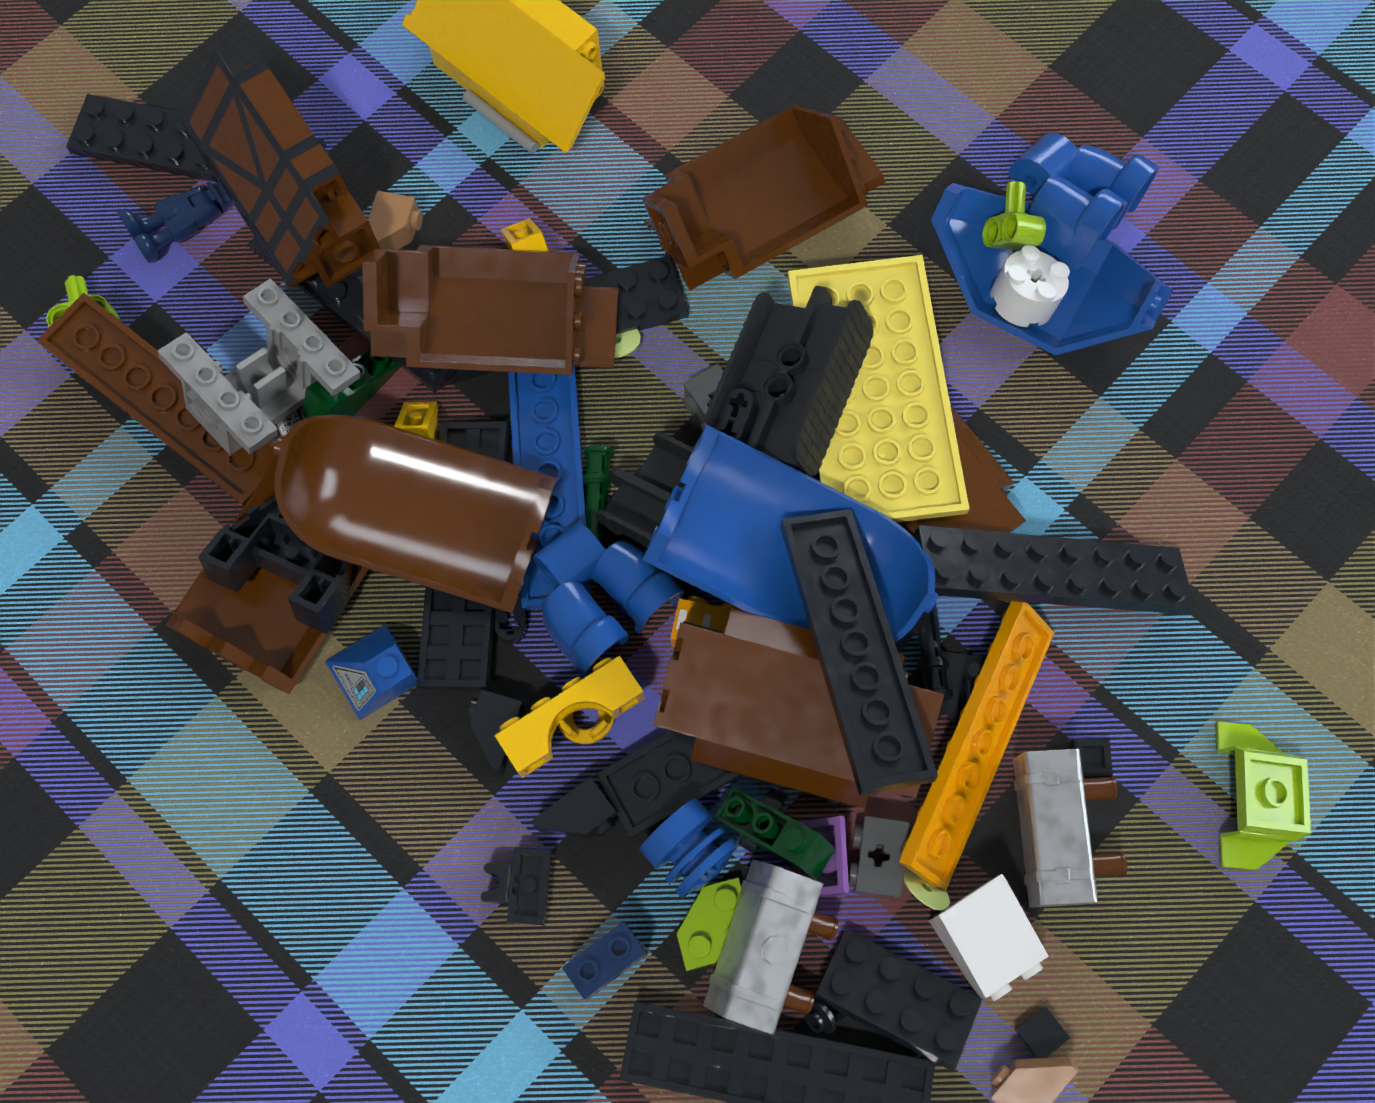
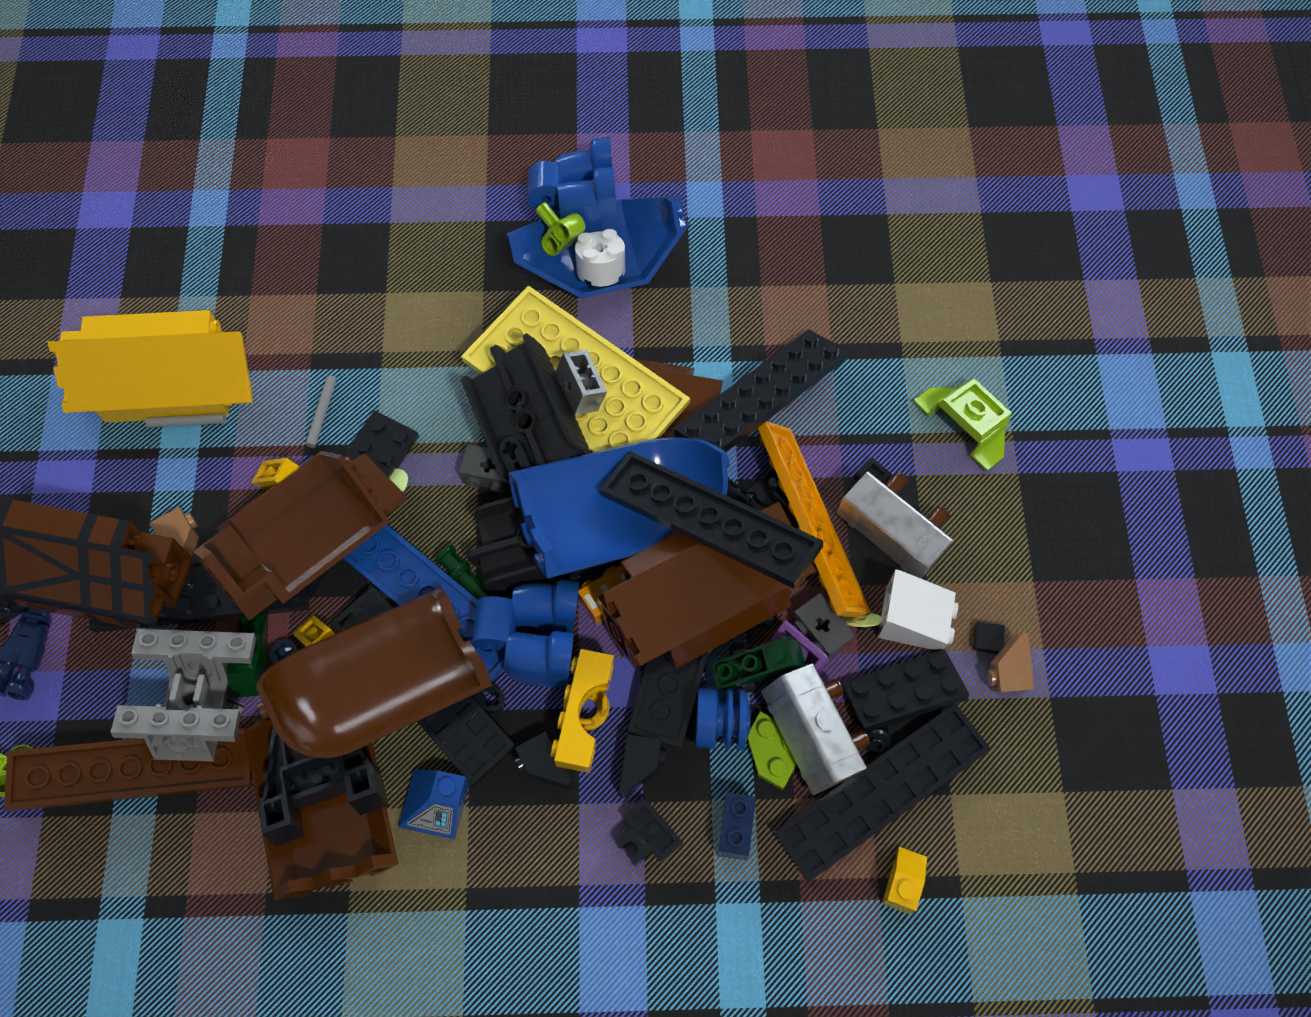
camera: 50 degrees left, 5 degrees down
(380, 410) = (281, 650): none -> dark blue tile
(614, 219) = (320, 411): none -> light grey bar
(760, 194) = (394, 332): reddish brown panel -> none
(870, 396) = (580, 382): none -> dark grey brick

